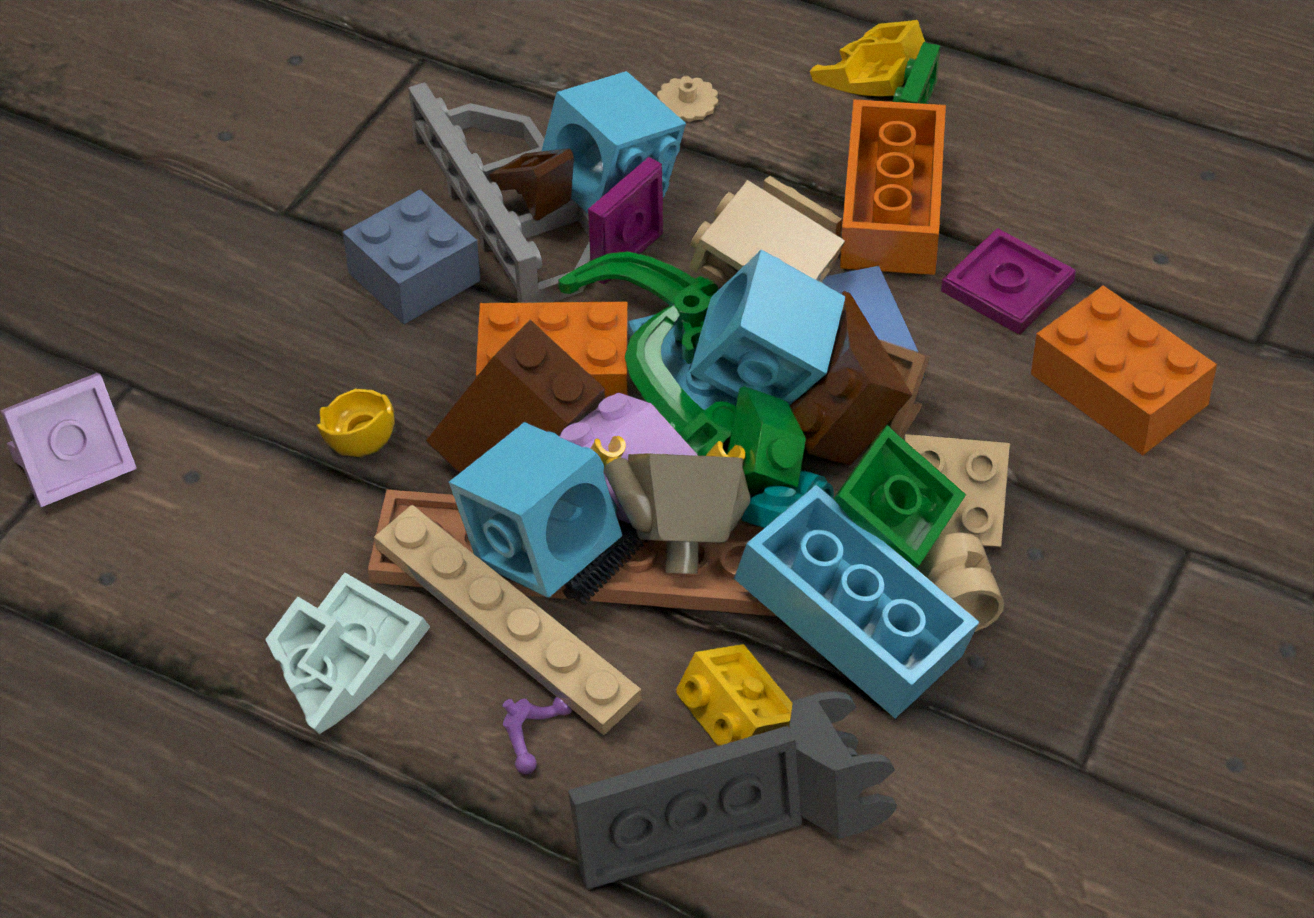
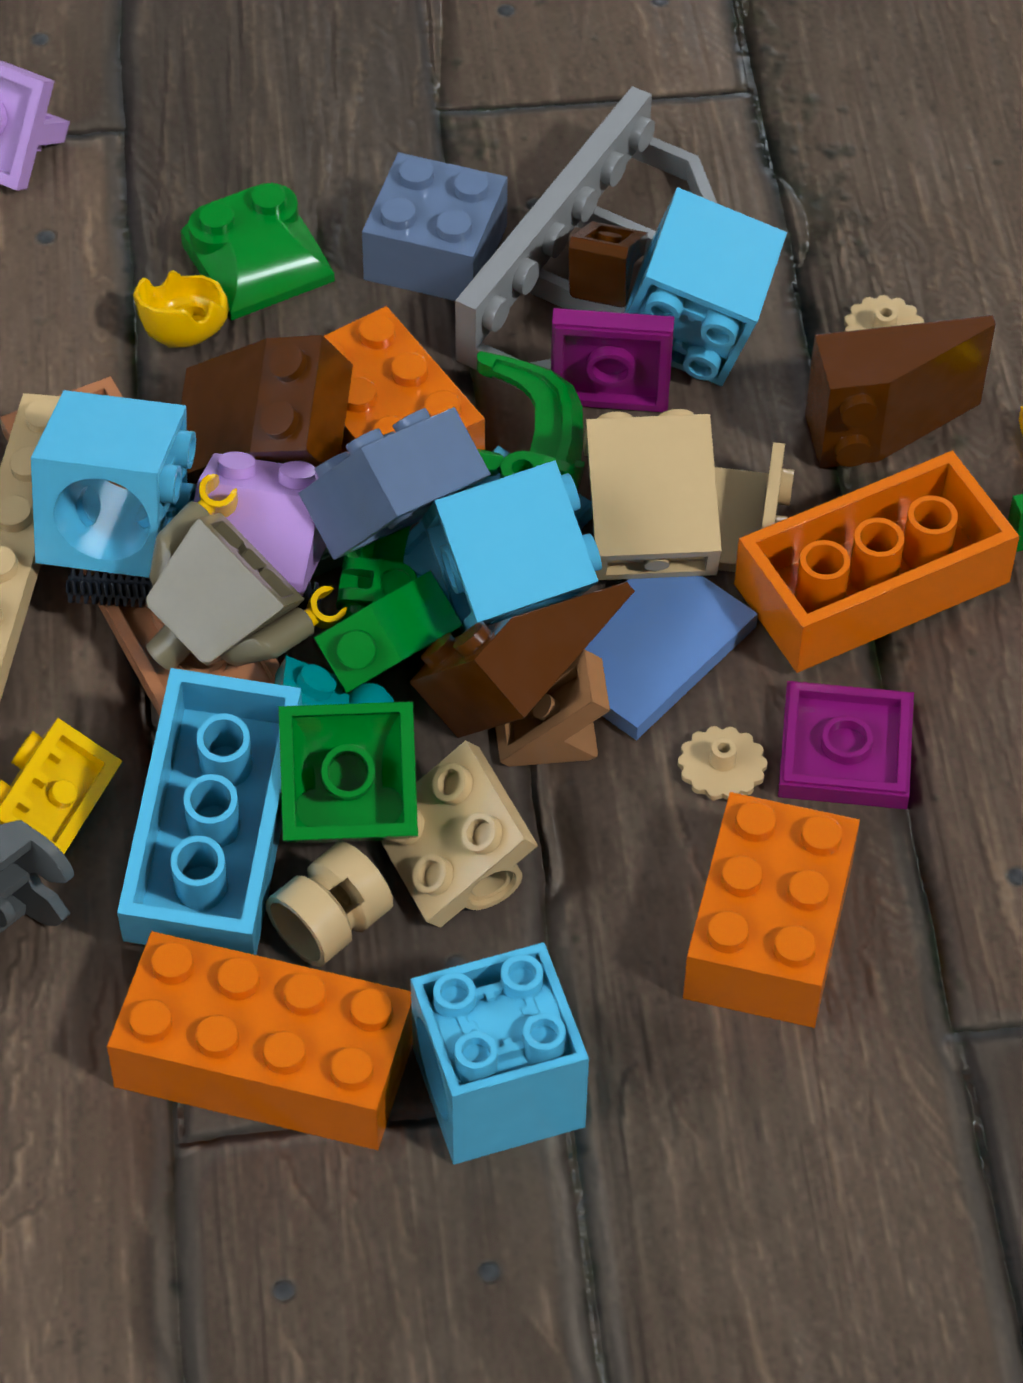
camera: 55 degrees right, 5 degrees up
(326, 360) = (256, 248): none -> green slope
(686, 350) = (391, 479): none -> sand blue brick
(761, 113) = (893, 386): none -> reddish brown slope
(976, 345) = (722, 762): none -> tan piece
(1045, 671) = (262, 1040): none -> orange brick
(1156, 545) = (499, 1052): none -> medium azure brick

